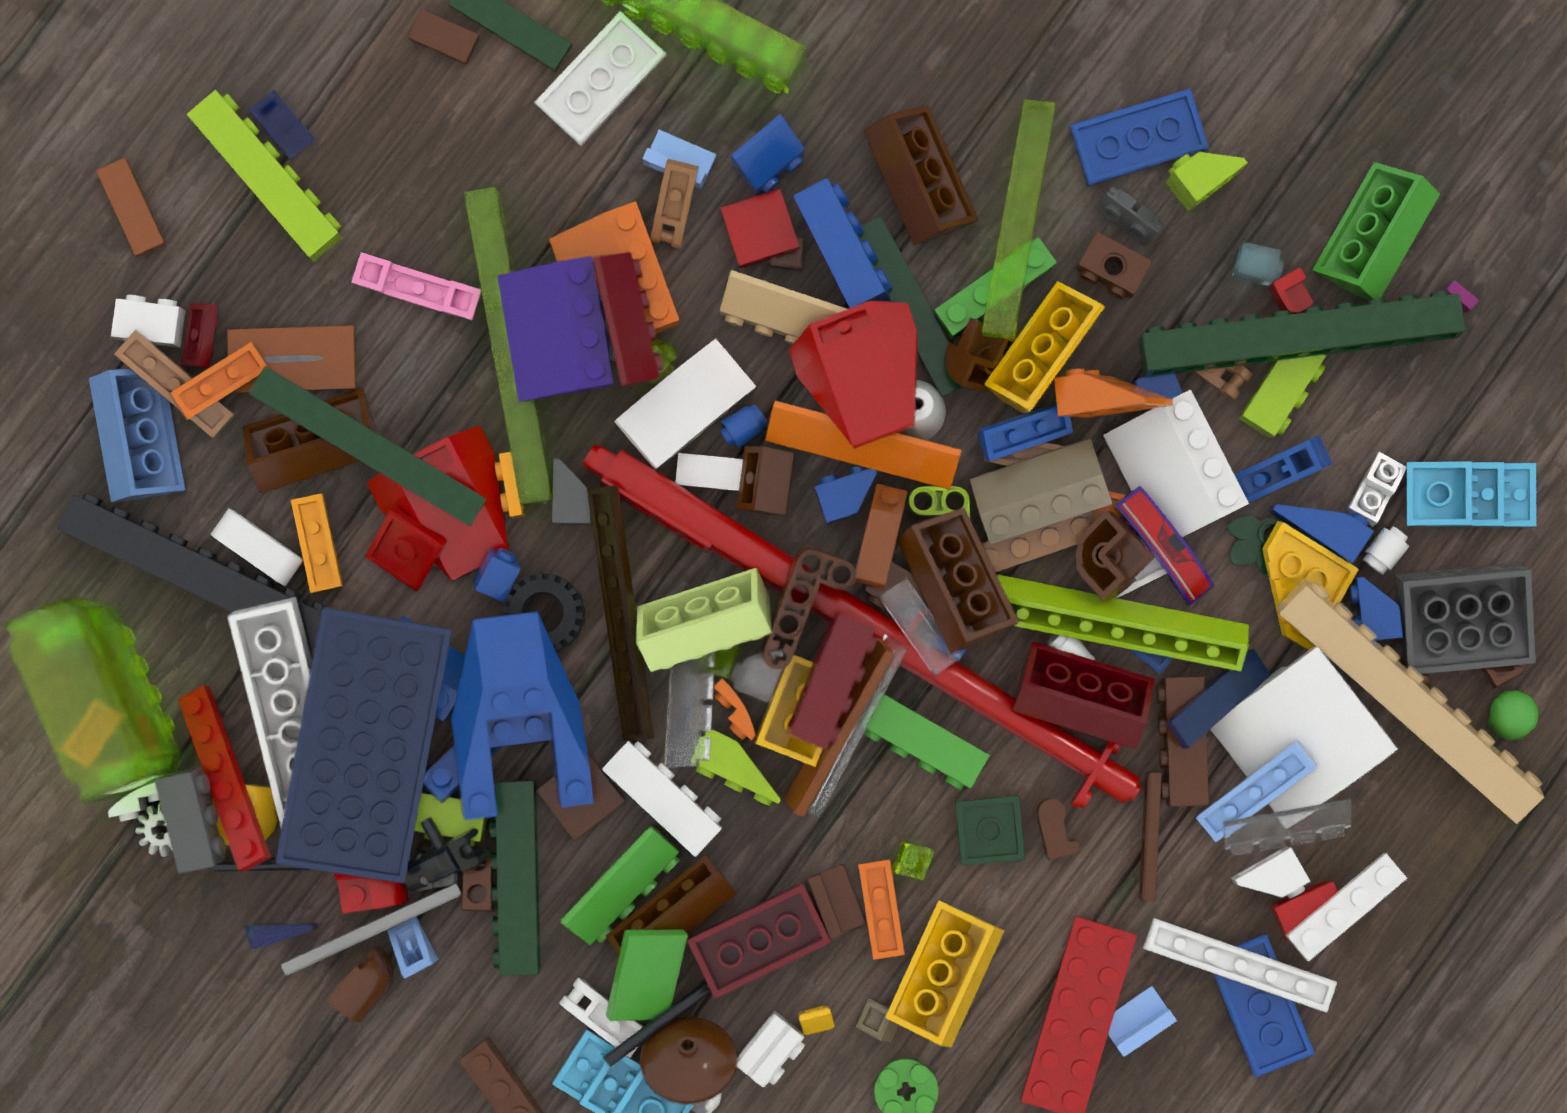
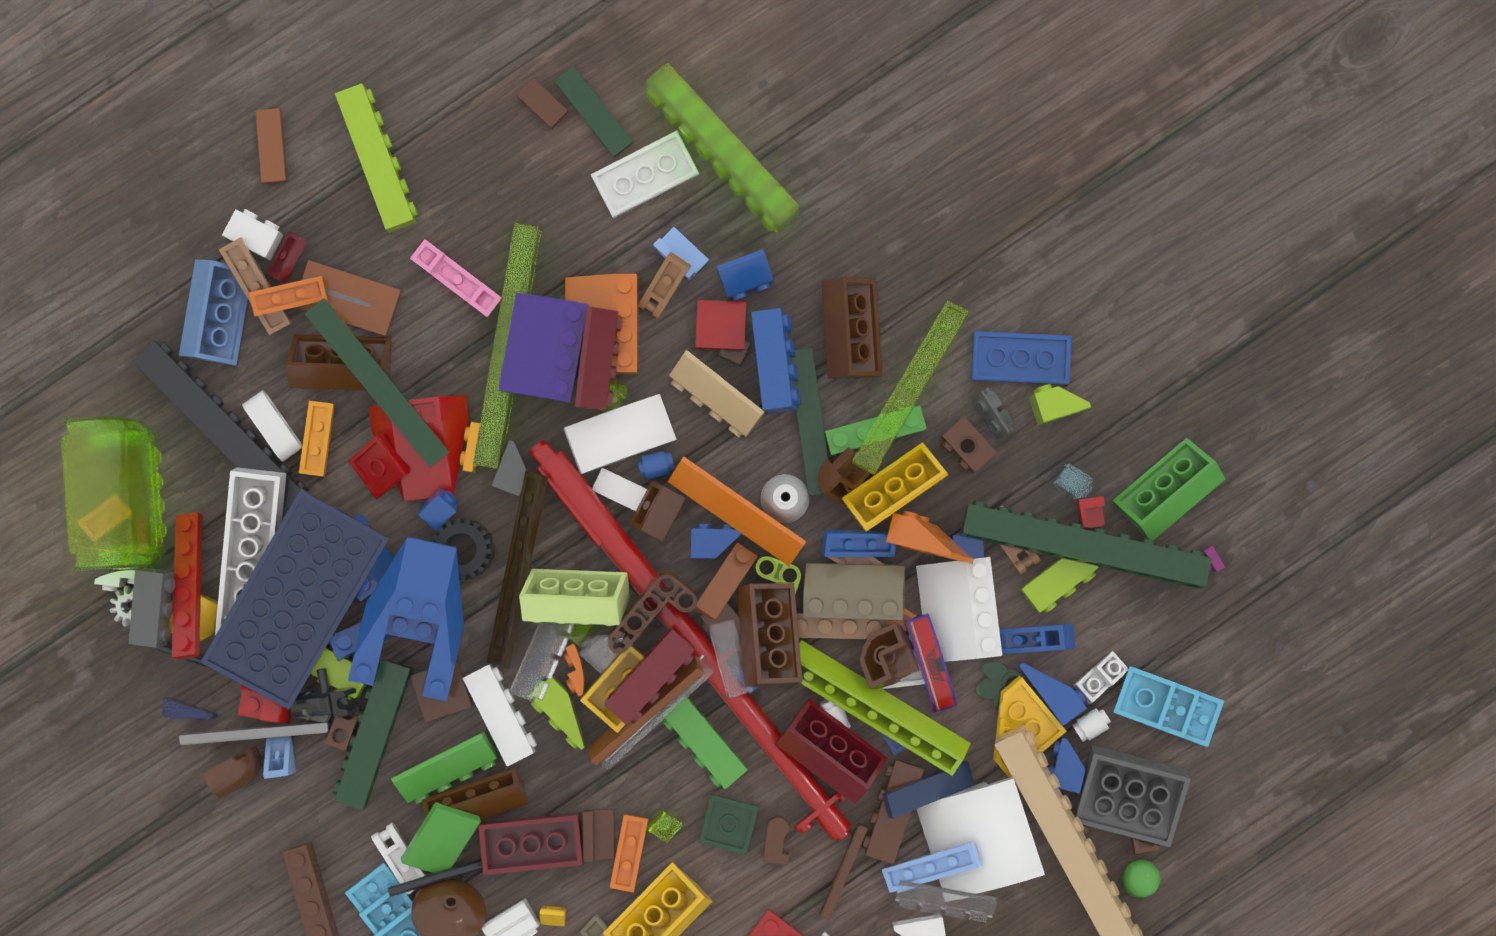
camera: 20 degrees right, 0 degrees up
(281, 124) = (402, 124): clear blue slope -> none
(862, 369) = (755, 457): red wedge -> none

